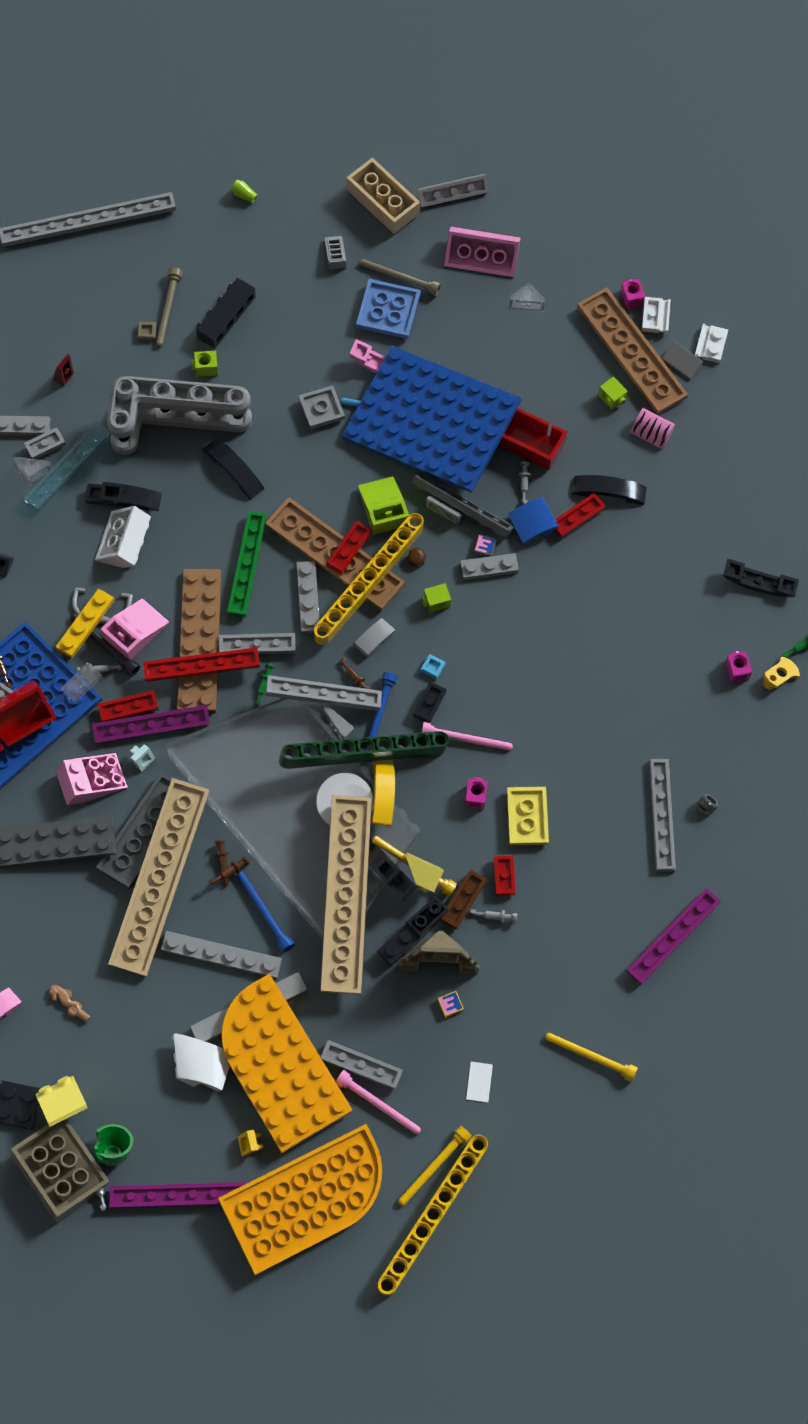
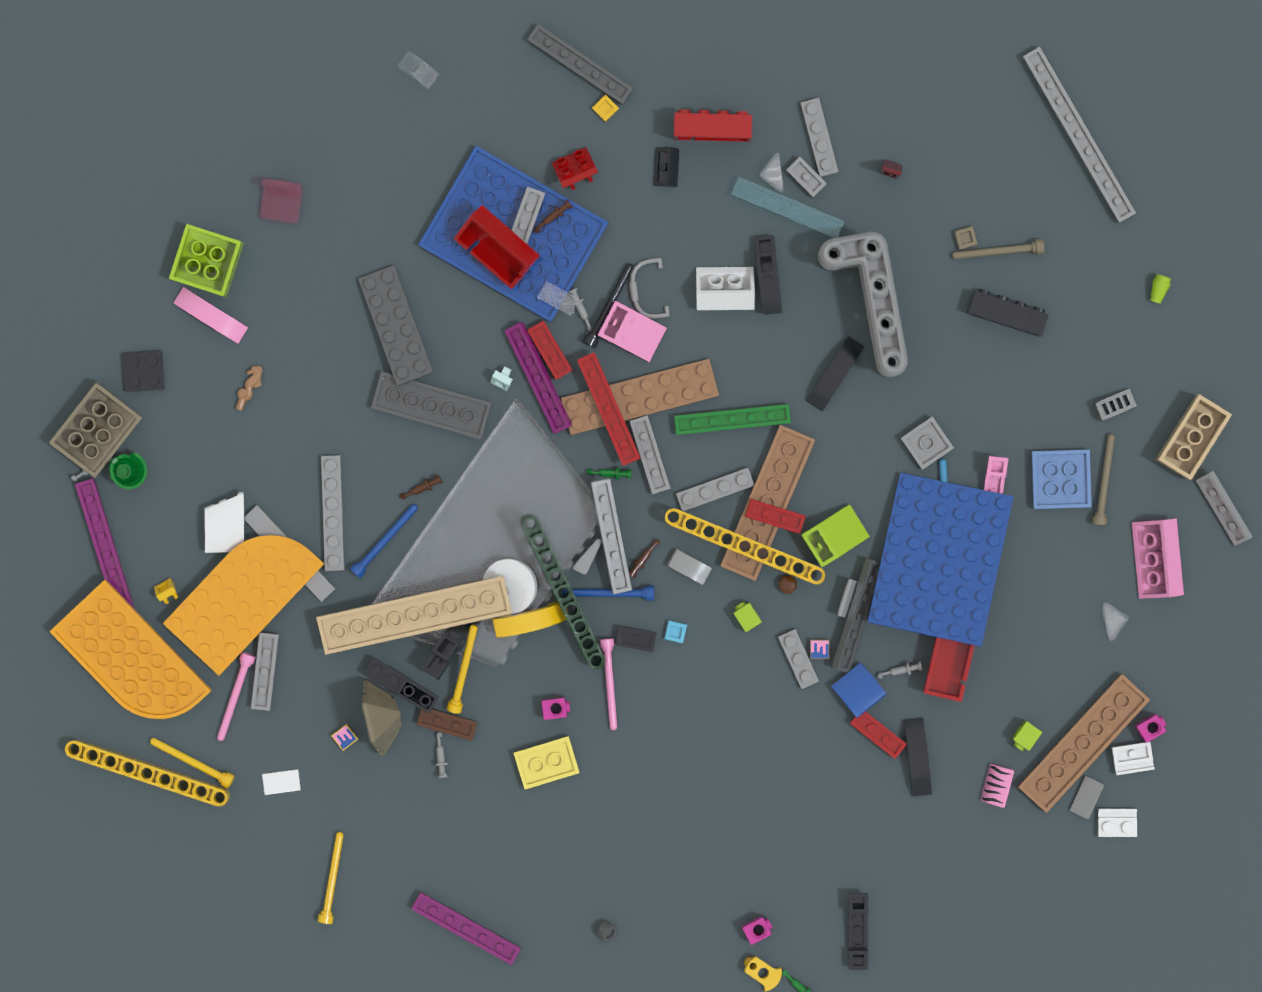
camera: 75 degrees right, 20 degrees up
(61, 1100) = (152, 412): light yellow slope -> none
(85, 623) = (622, 281): yellow plate -> none
(90, 778) = (468, 338): bright pink slope -> none
(159, 877) = (387, 434): tan plate -> none
(210, 369) = (941, 319): lime brick -> none
(234, 868) = (414, 498): reddish brown piece -> none
(424, 873) = (455, 682): light yellow slope -> none
(504, 875) = (481, 755): red plate -> none
(662, 815) = (584, 889): light grey tile -> none

